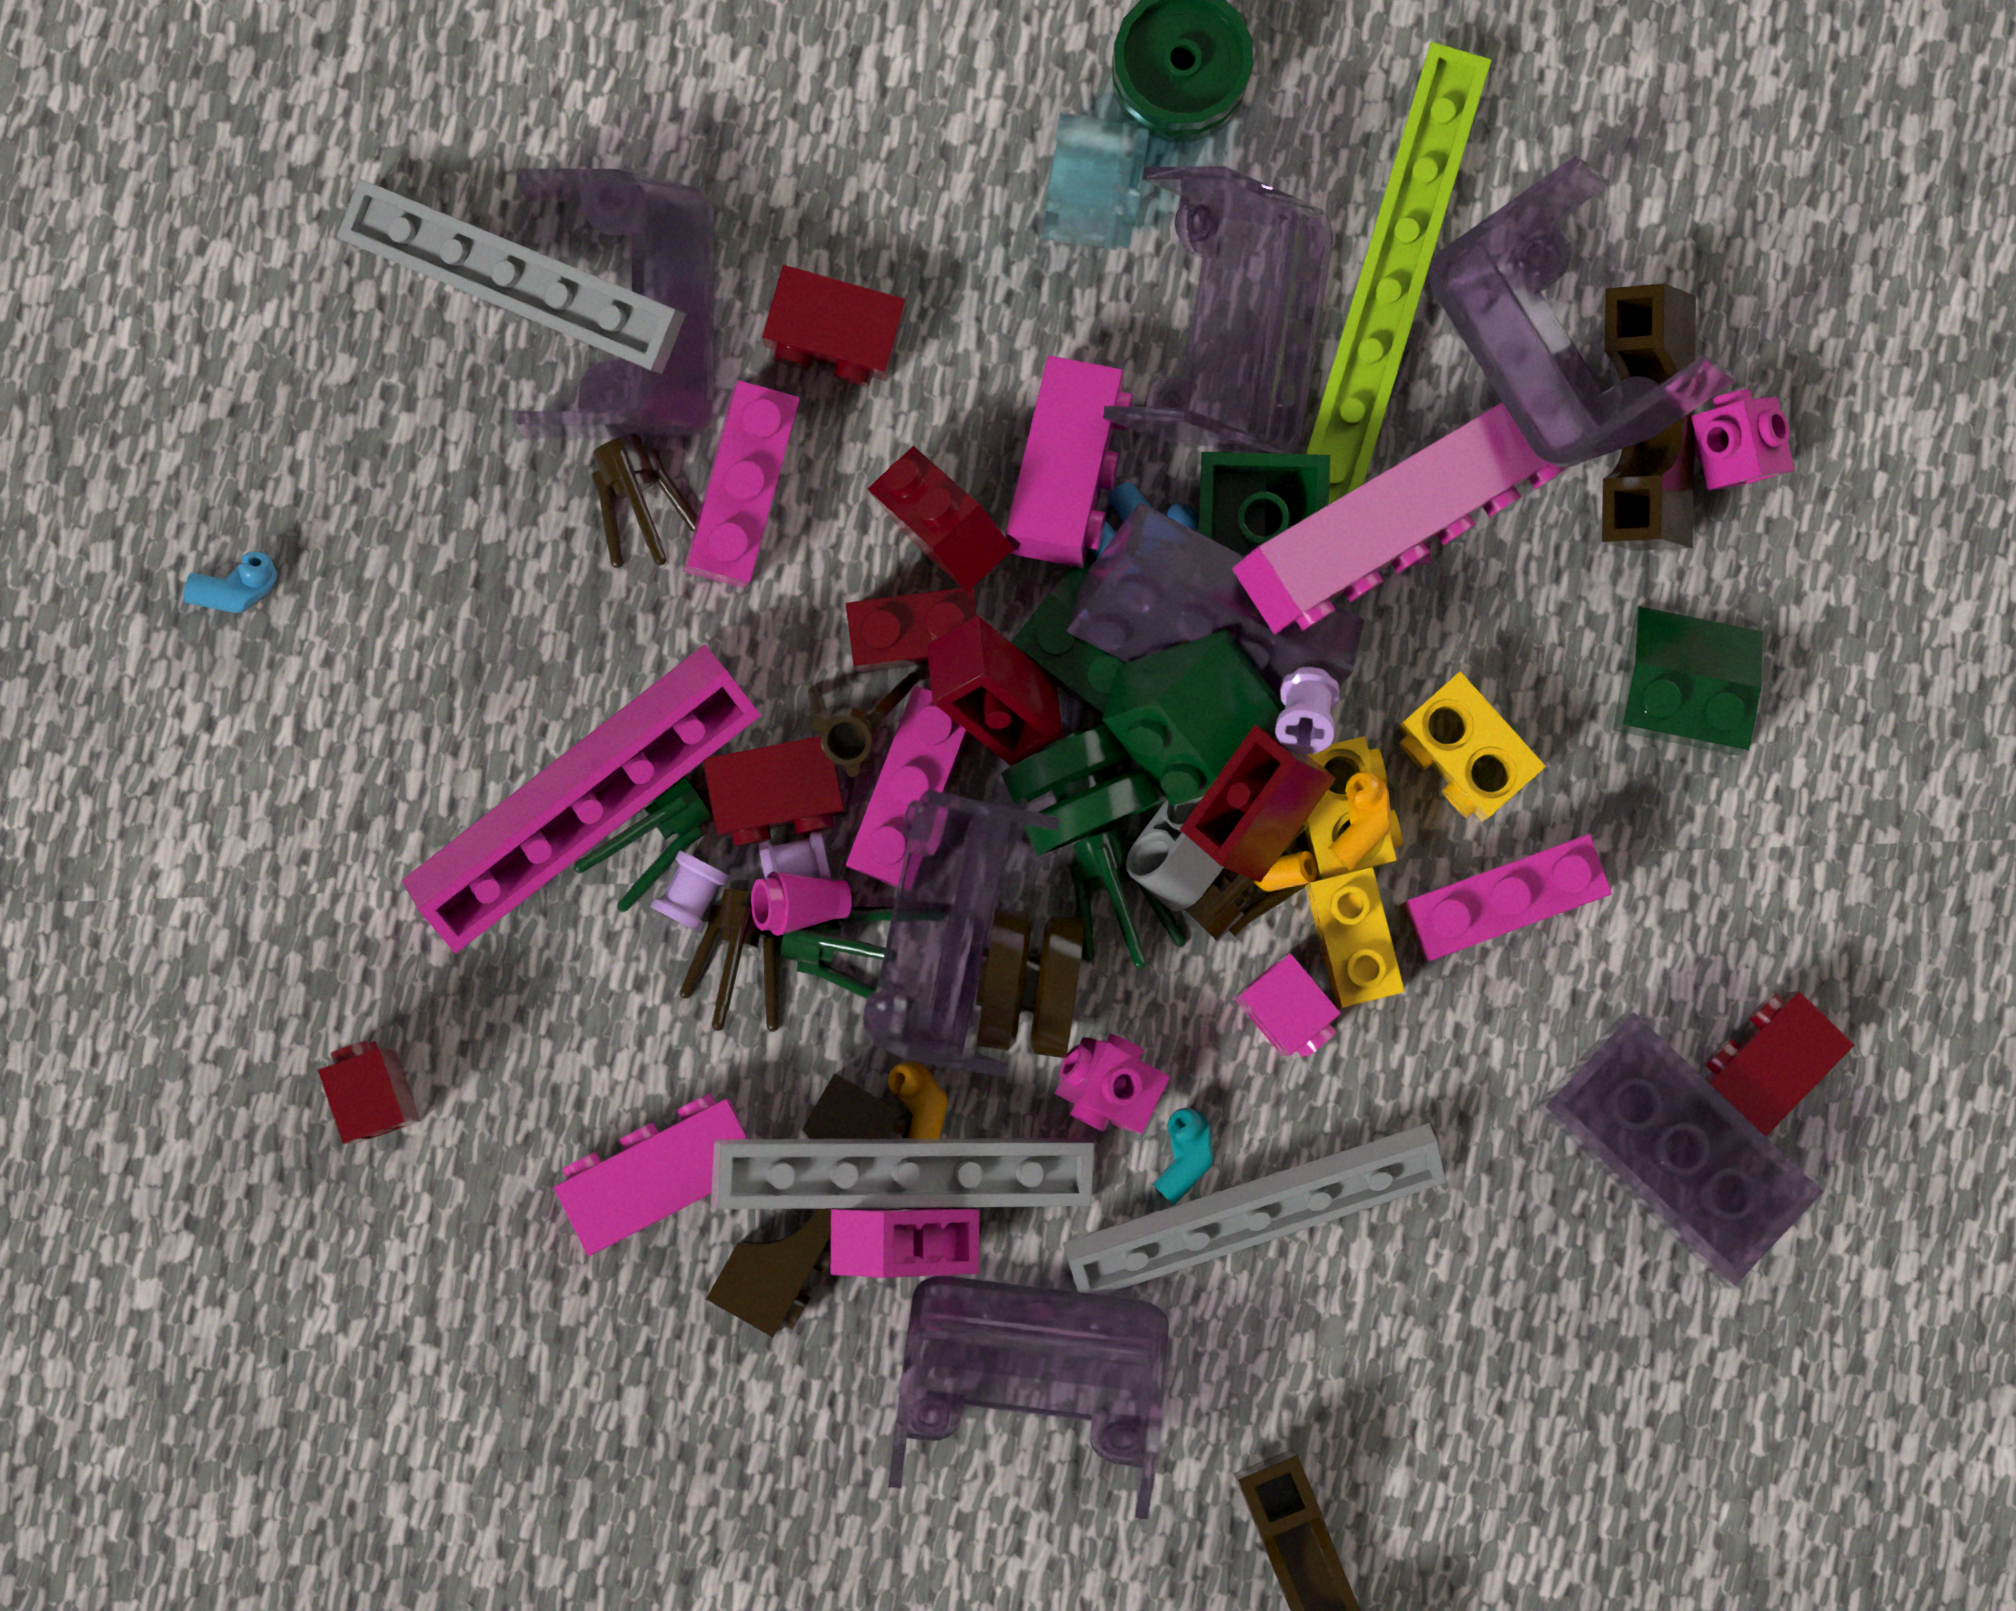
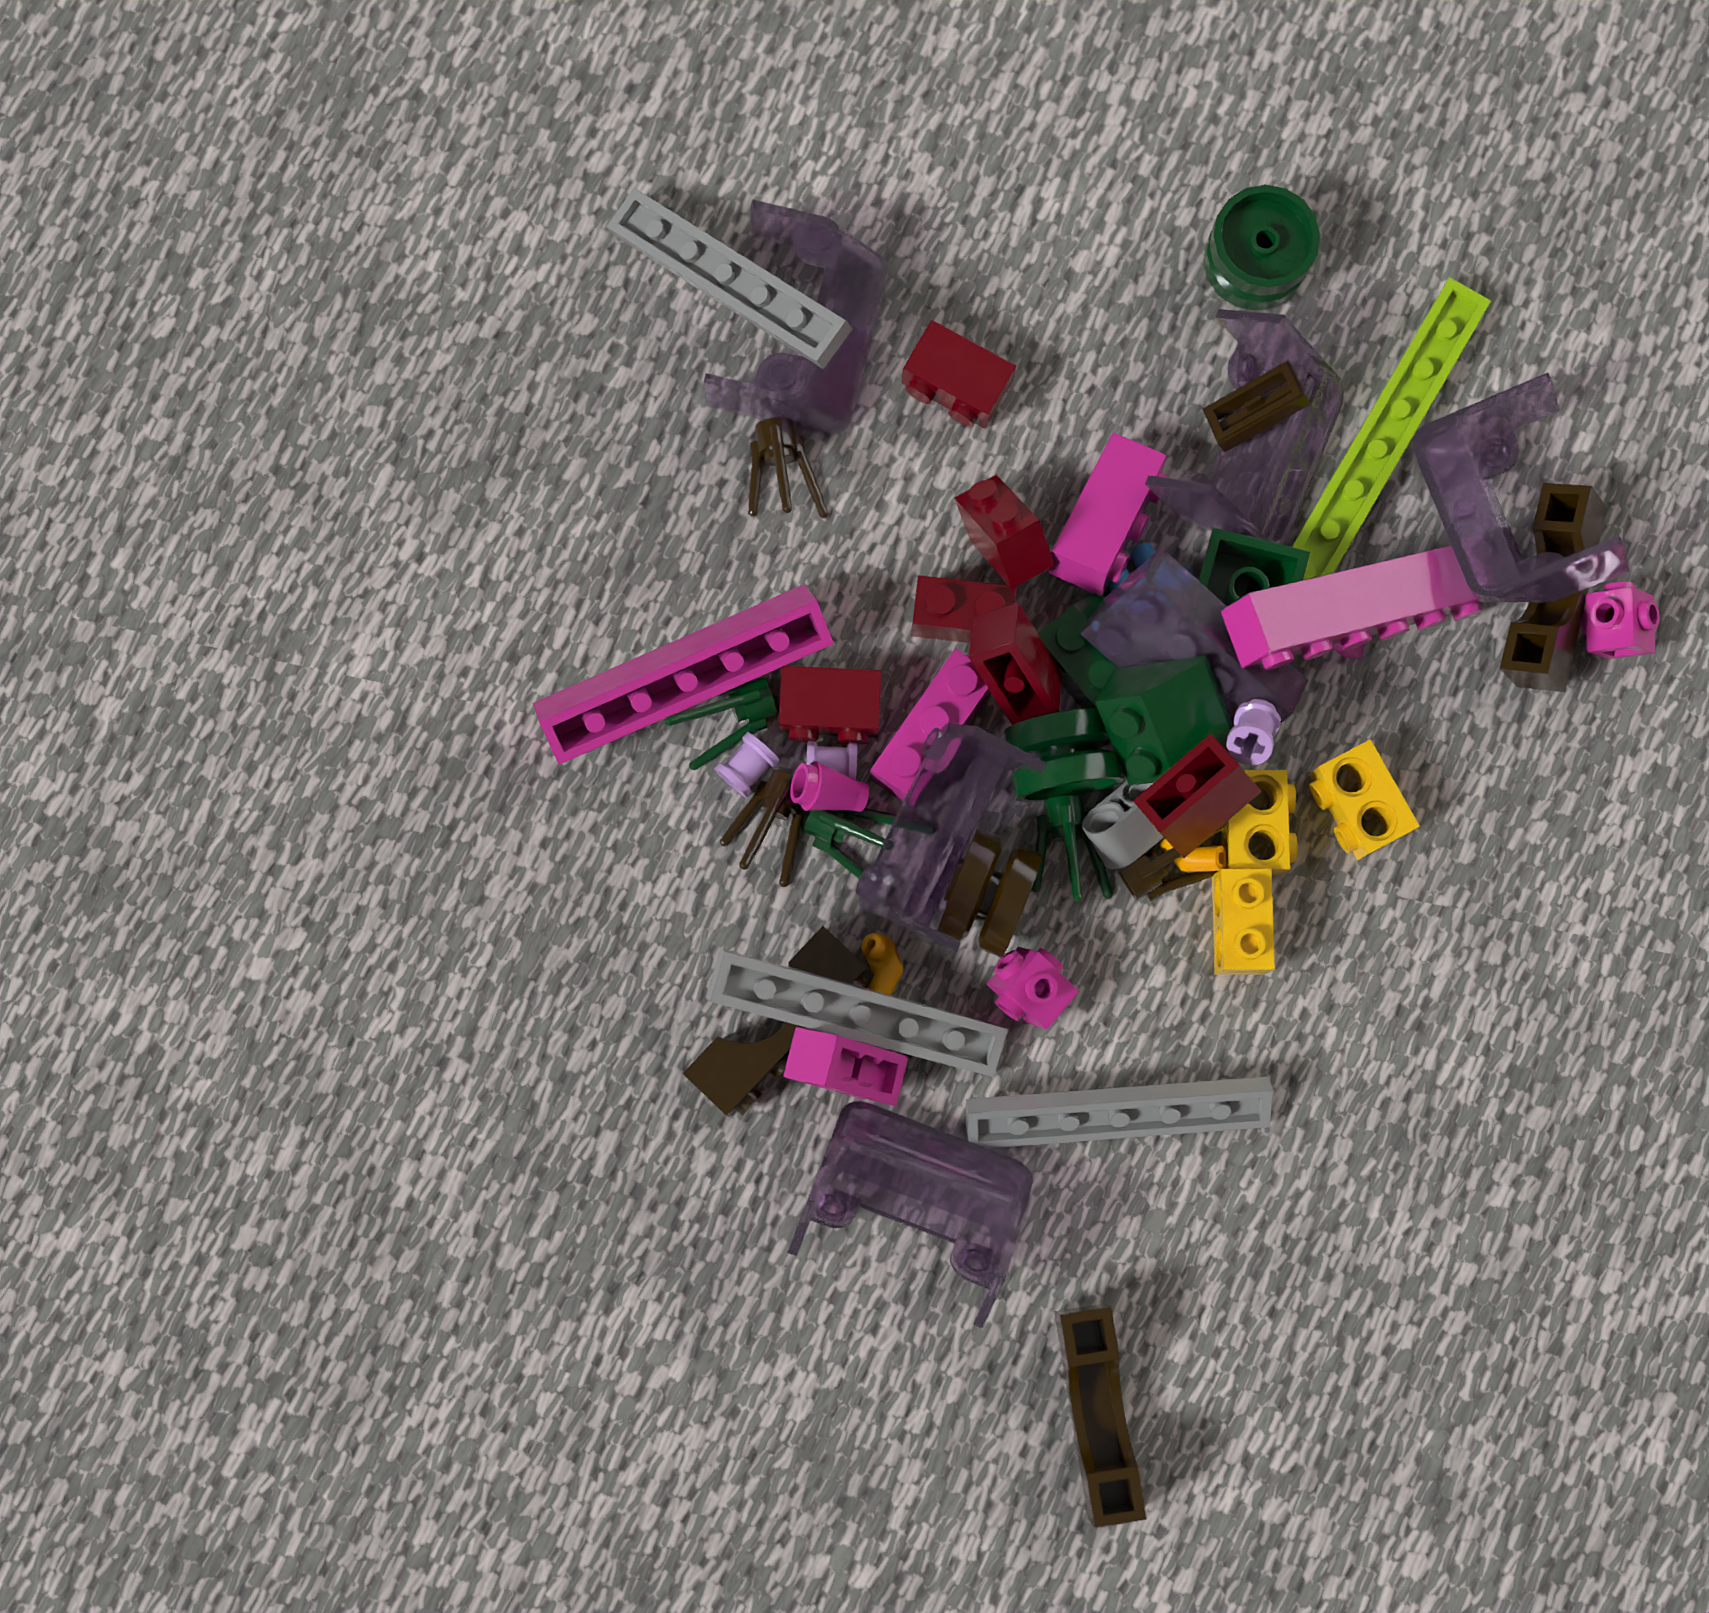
camera: 15 degrees right, 5 degrees down
(236, 591) = (466, 464): dark azure arm -> none
(367, 1092) = (465, 853): dark red brick -> none
(650, 1177) = (660, 973): dark pink brick -> none
(741, 484) = (860, 473): dark pink brick -> none
(852, 732) = (900, 670): dark brown plant -> none
(1094, 182) = (1177, 315): clear light blue brick -> none
(1191, 1154) = (1079, 1056): teal arm -> none
(1228, 281) = (1259, 411): none -> dark brown tile
(1289, 1008) = (1182, 960): dark pink brick -> none
(1368, 818) = (1277, 830): light orange arm -> none
(1506, 898) = (1366, 920): dark pink brick -> none
(1679, 1148) = (1458, 1144): clear purple brick -> none
(1690, 682) = (1540, 795): dark green slope -> none
(1777, 1059) = (1545, 1096): dark red brick -> none

